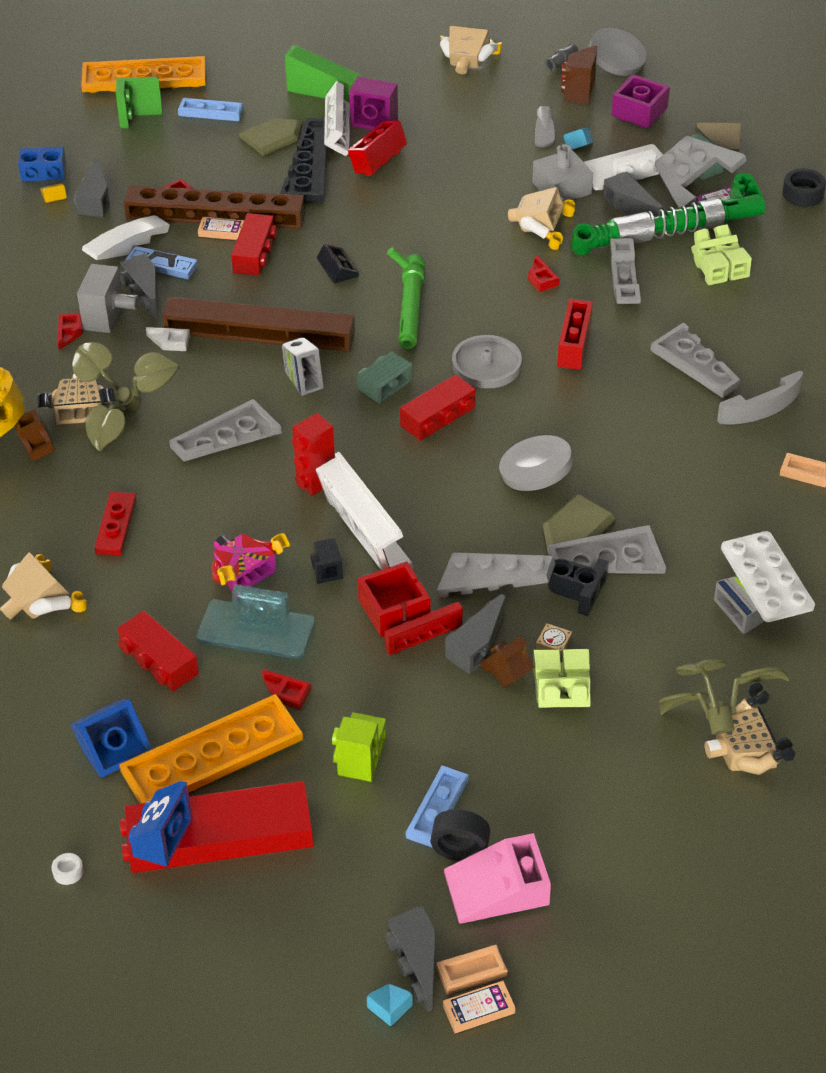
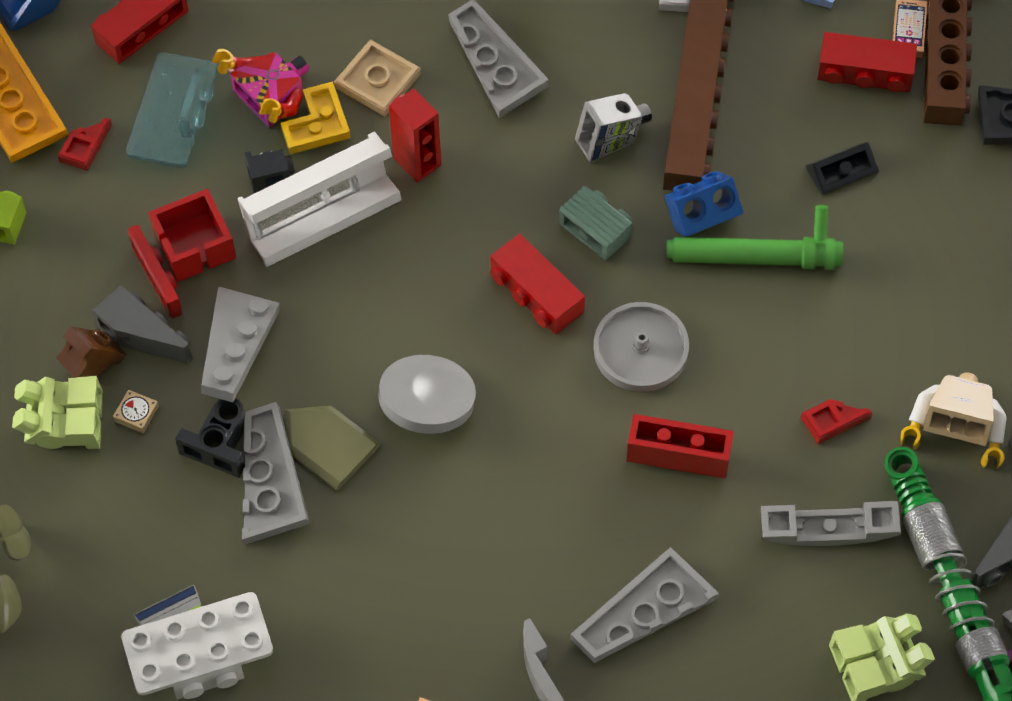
camera: 90 degrees right, 15 degrees up
(234, 503) = (377, 77): none -> tan tile
(270, 526) = (323, 125): none -> yellow plate
(374, 319) = (704, 211): none -> blue brick

